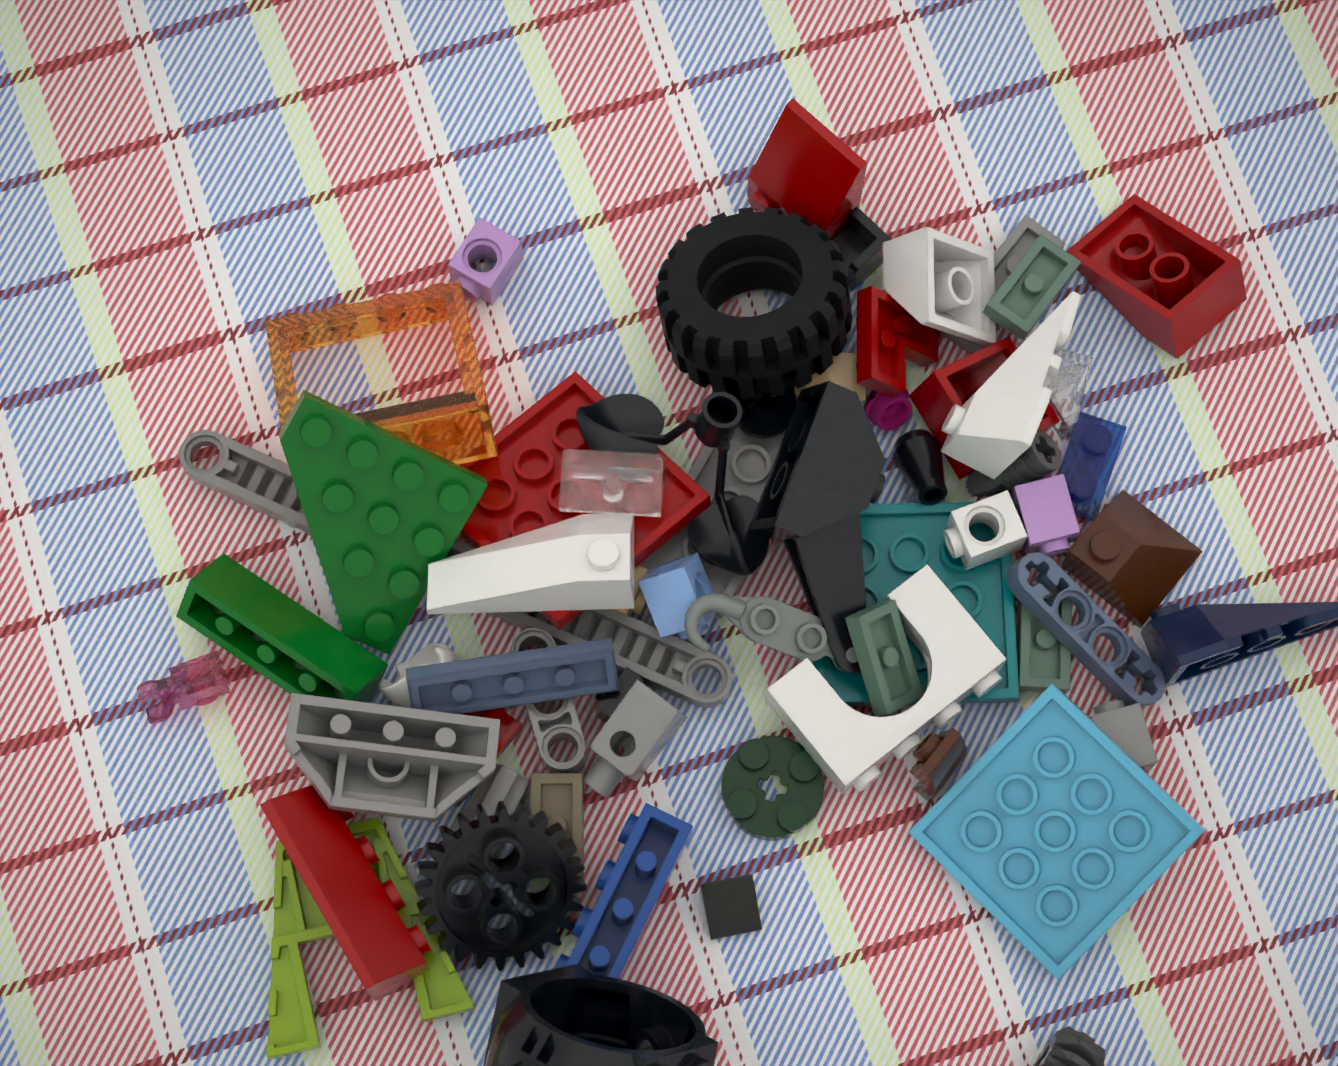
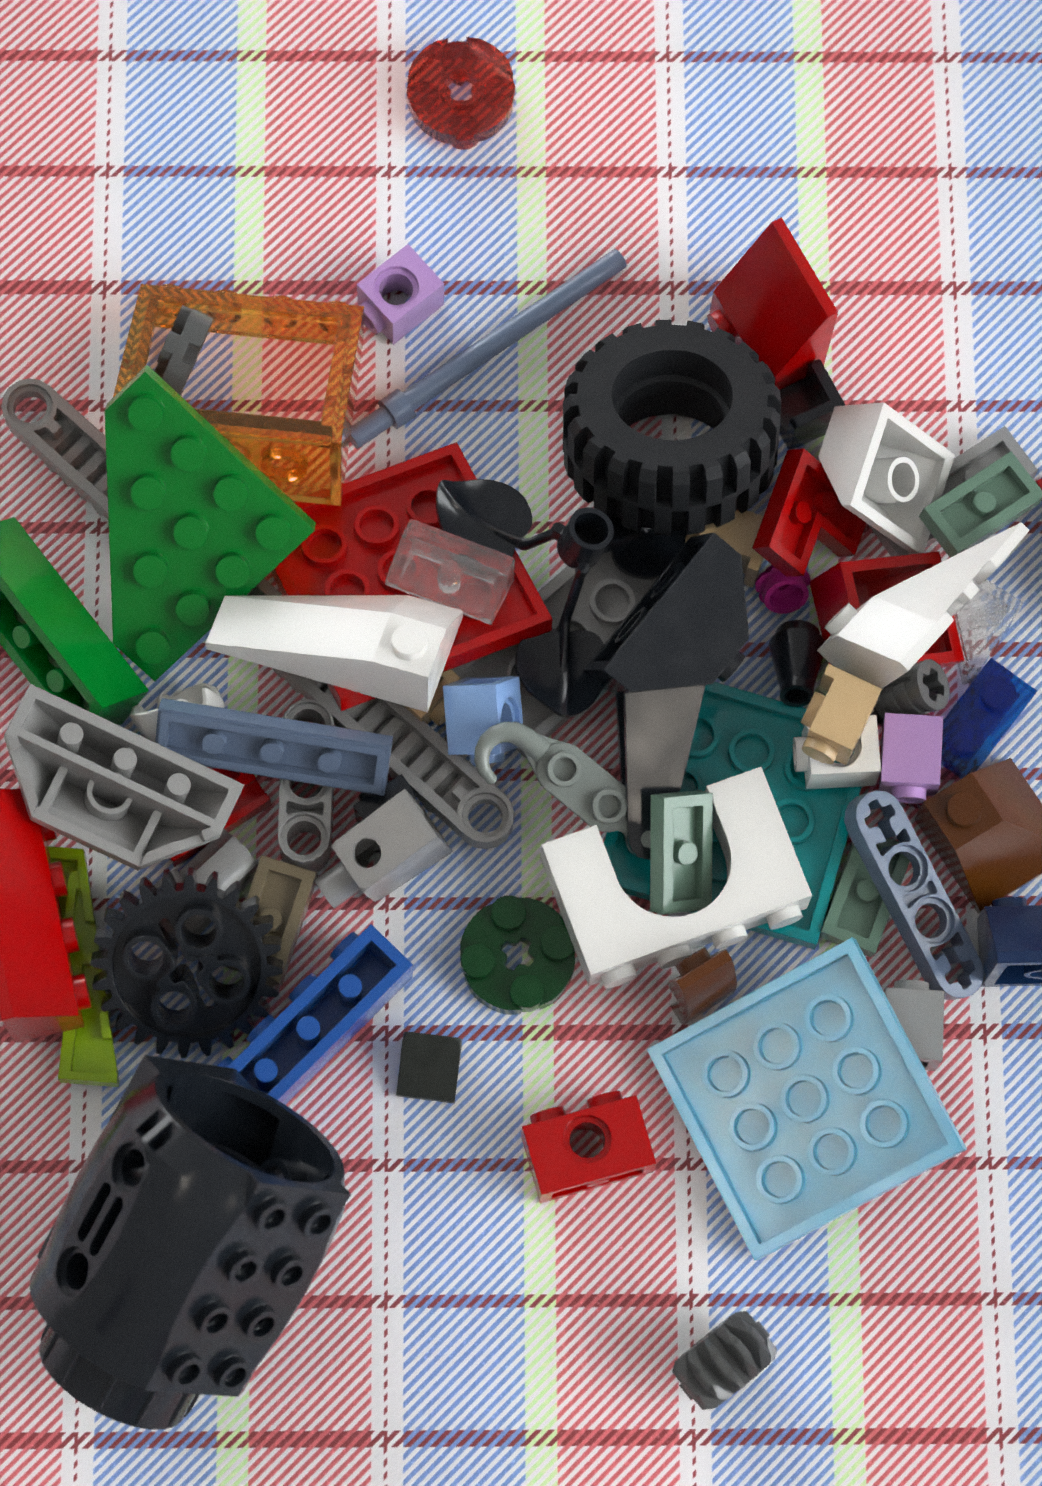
camera: 15 degrees right, 0 degrees up
(320, 356) = (183, 347): none -> dark grey plate
(488, 99) = (458, 62): none -> clear red plate
(517, 355) = (400, 406): none -> sand blue bar
(918, 923) = (562, 1172): none -> red brick
(979, 502) = (839, 716): none -> tan brick

